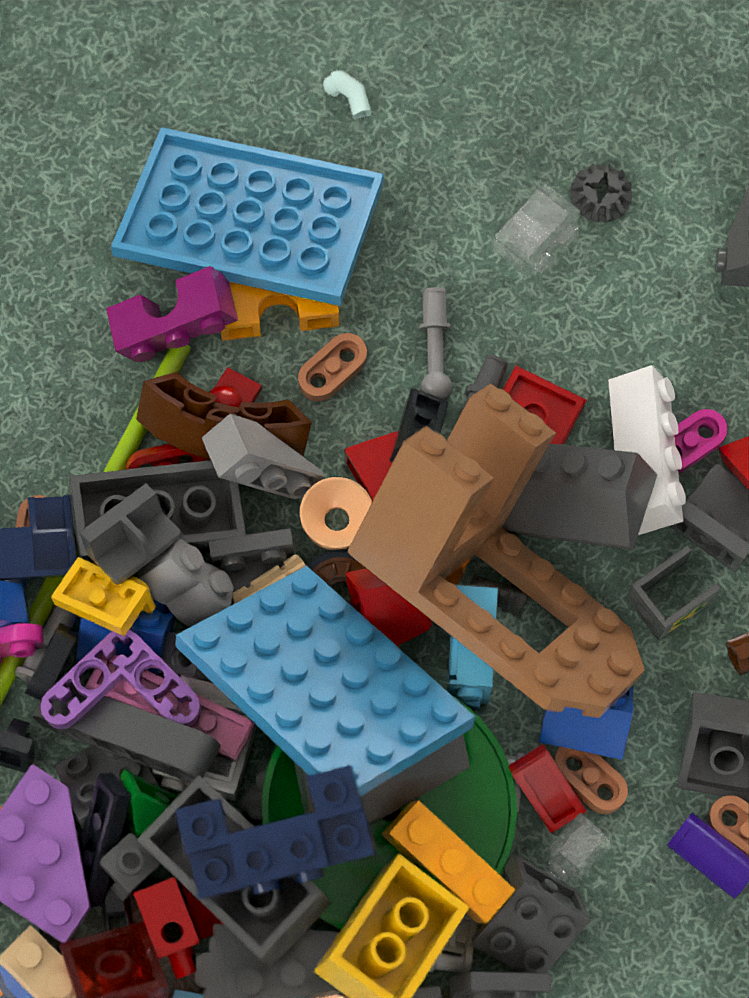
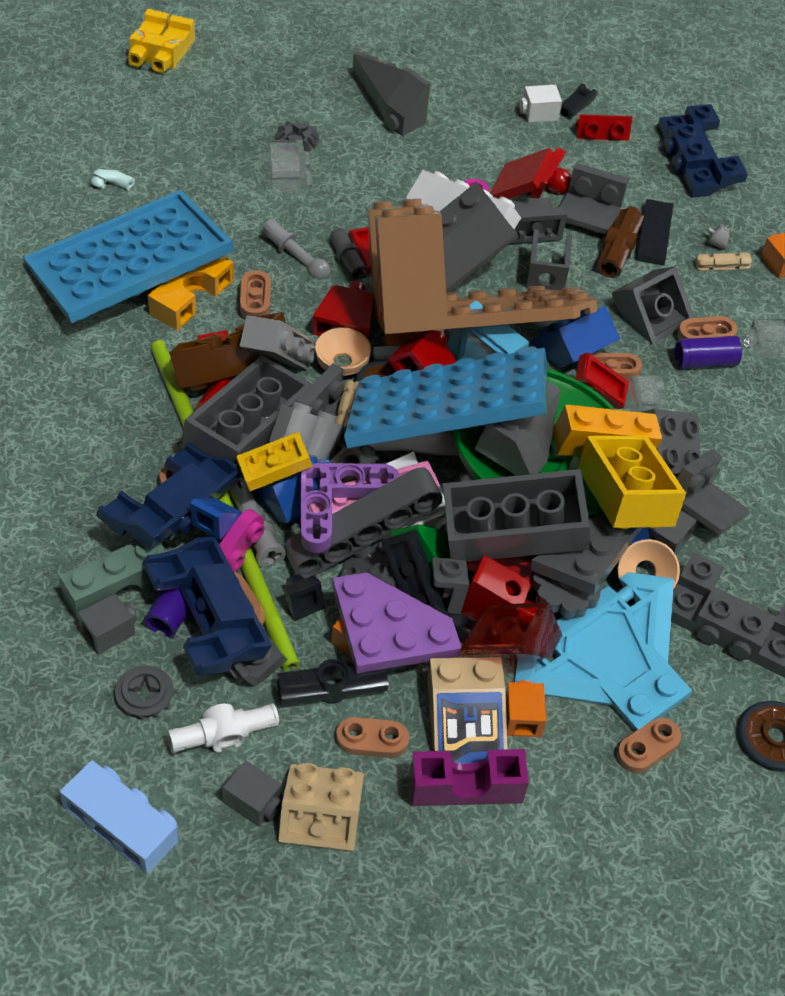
camera: 50 degrees left, 20 degrees down
(51, 661) = (280, 525): black beam -> none
(130, 535) = (256, 418): dark grey panel -> none
(201, 308) = (133, 346): magenta arch -> none
(280, 849) = (534, 470): dark blue bracket -> none
(419, 411) = (343, 277): black tile -> none

